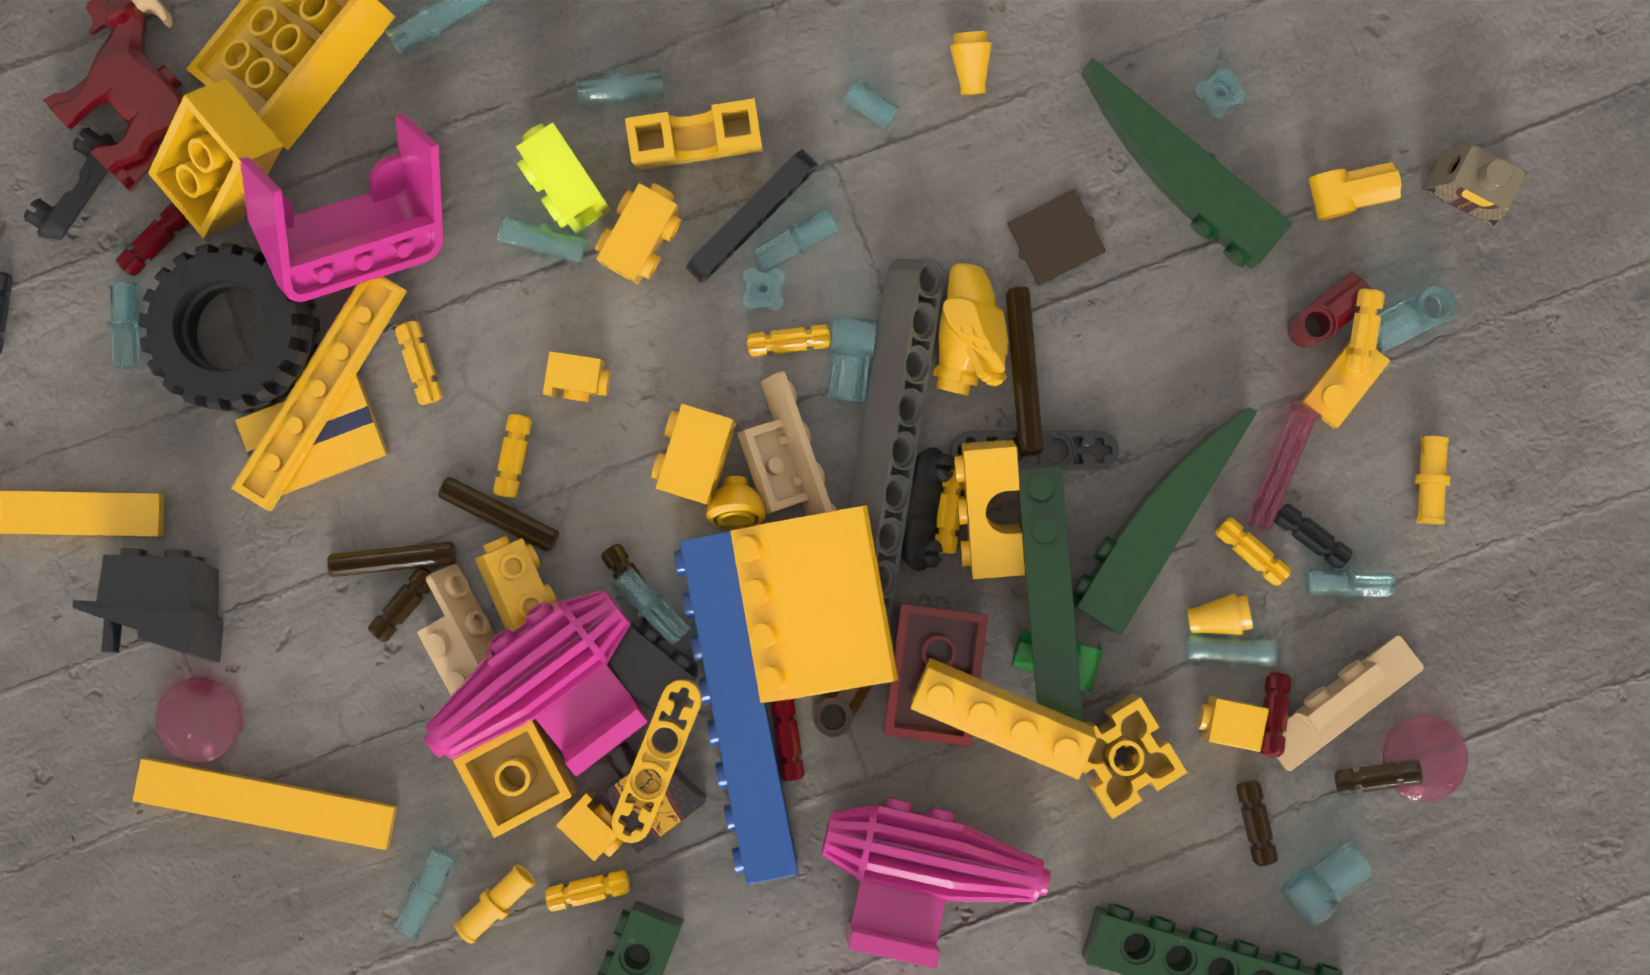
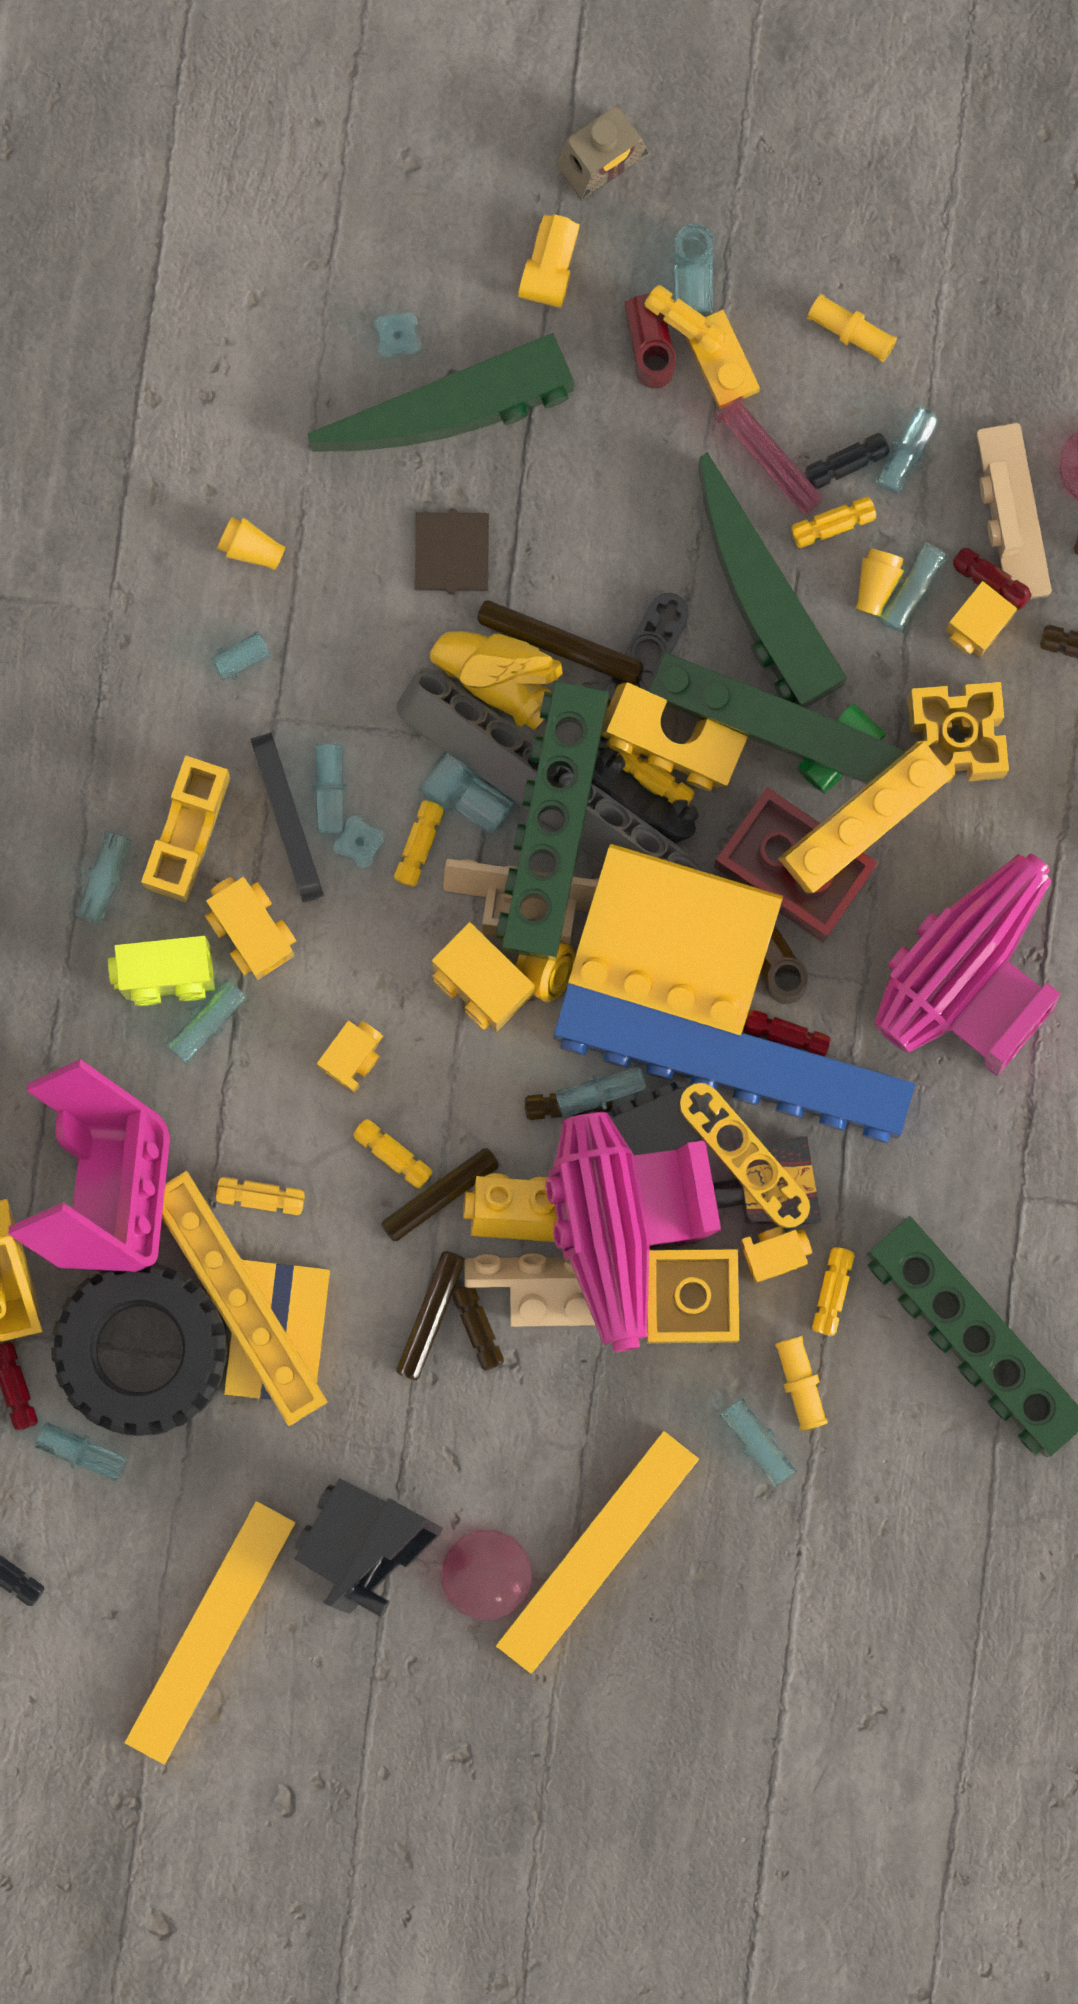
camera: 70 degrees left, 5 degrees down
(972, 427) = (586, 709): none -> dark green brick

